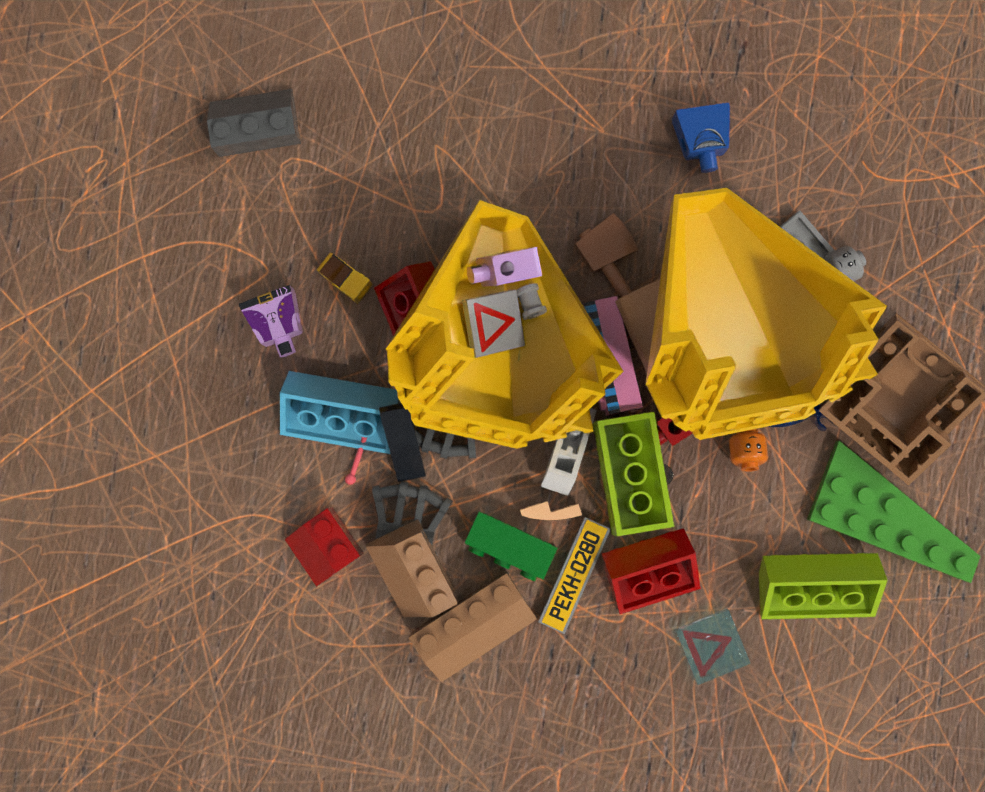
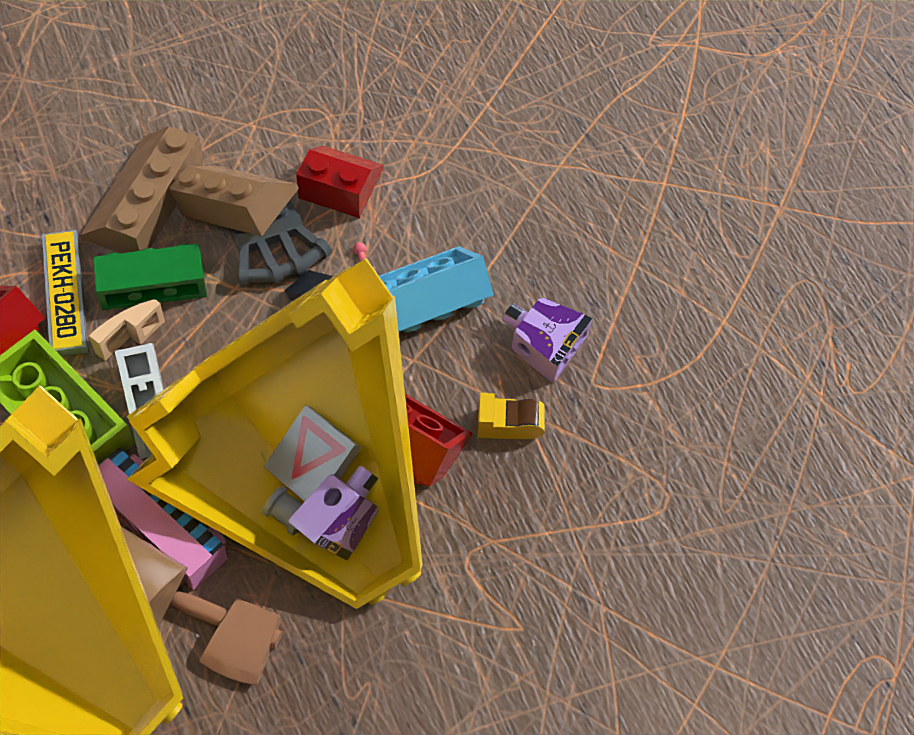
camera: 140 degrees right, 25 degrees down
(253, 123) = (734, 512): dark grey slope -> none

